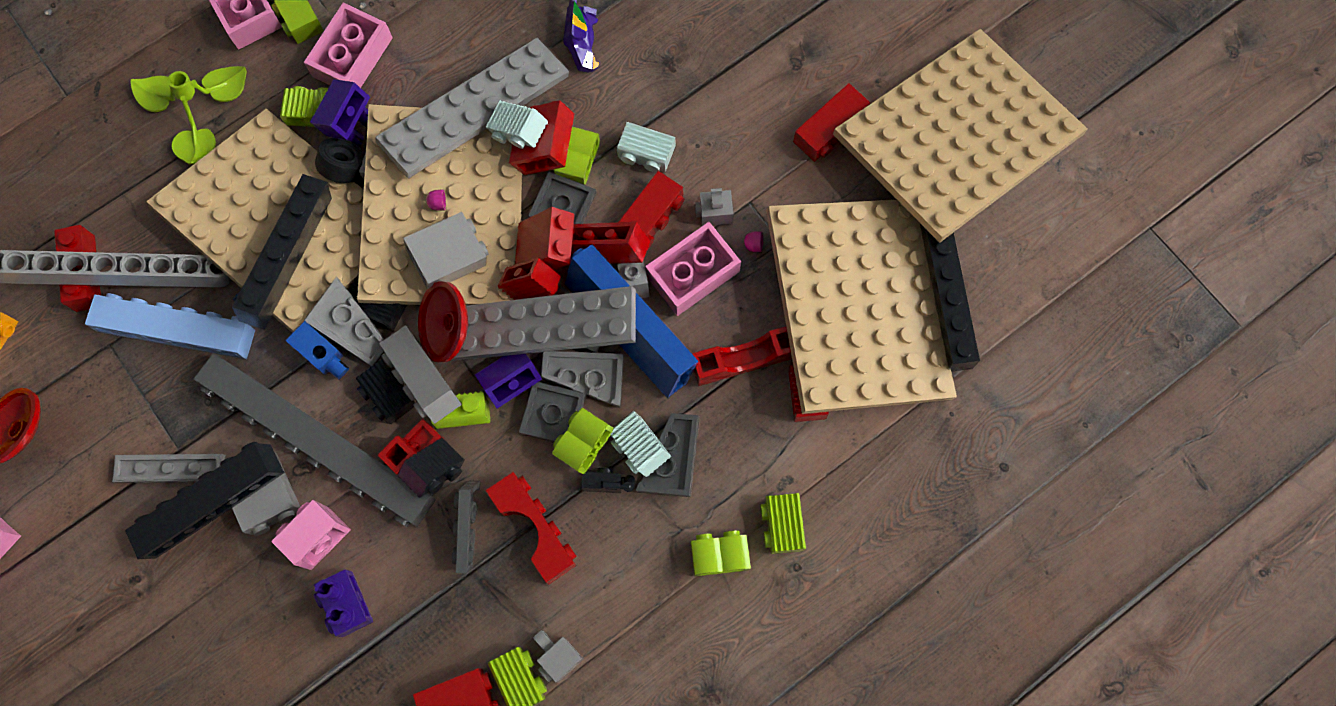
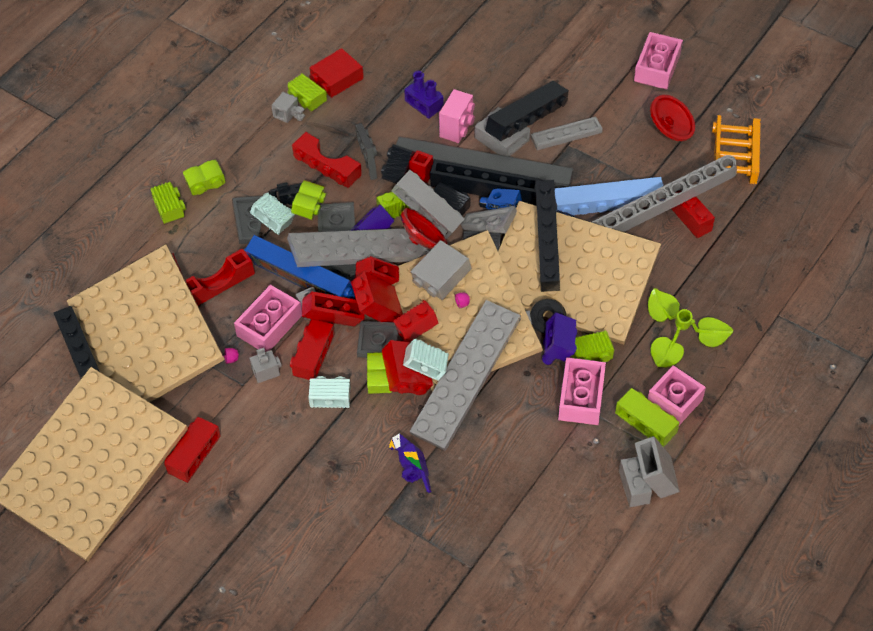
camera: 160 degrees right, 20 degrees down
(322, 398) = (481, 180): none -> black brick
(507, 191) = (416, 322): none -> red brick

